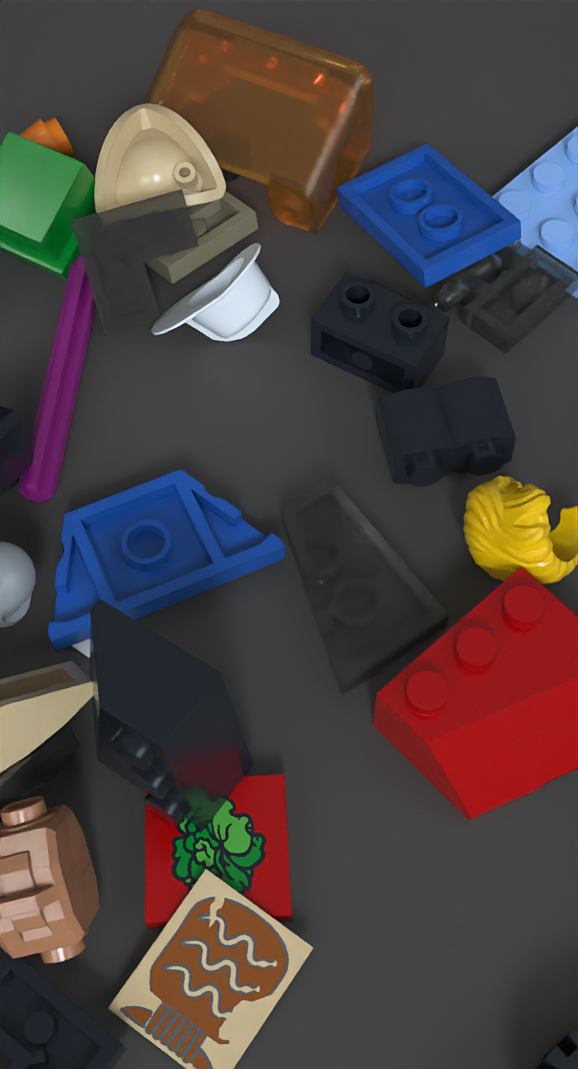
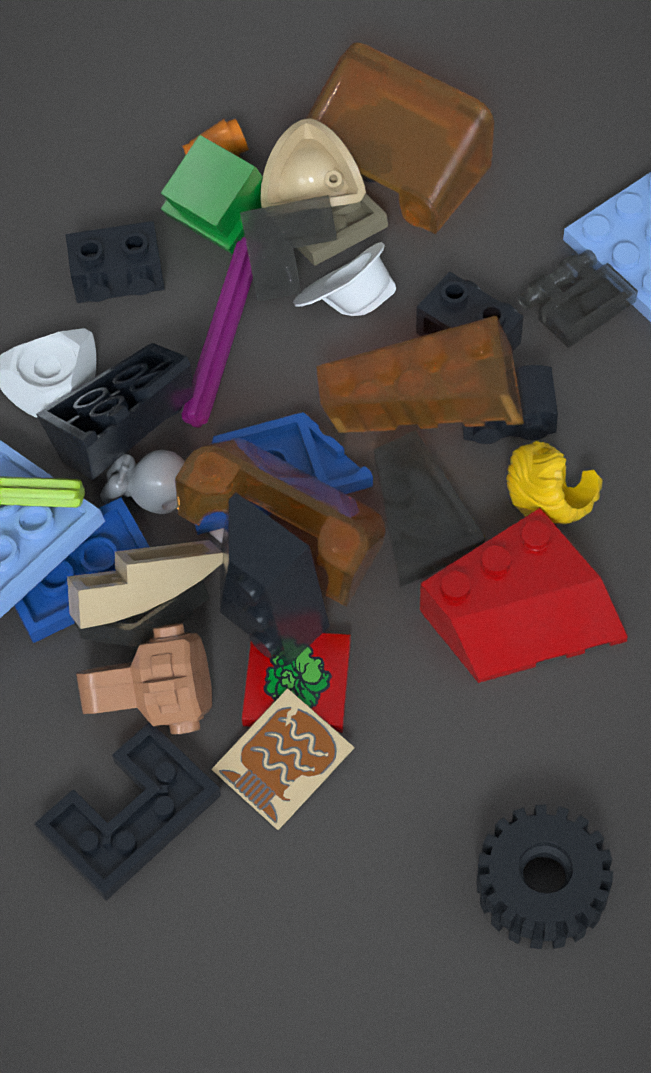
camera: 10 degrees right, 0 degrees up
(105, 557) = (345, 528): none -> clear orange windscreen
(338, 412) = (425, 381): none -> clear orange wedge
(428, 214) = (523, 229): blue plate -> none

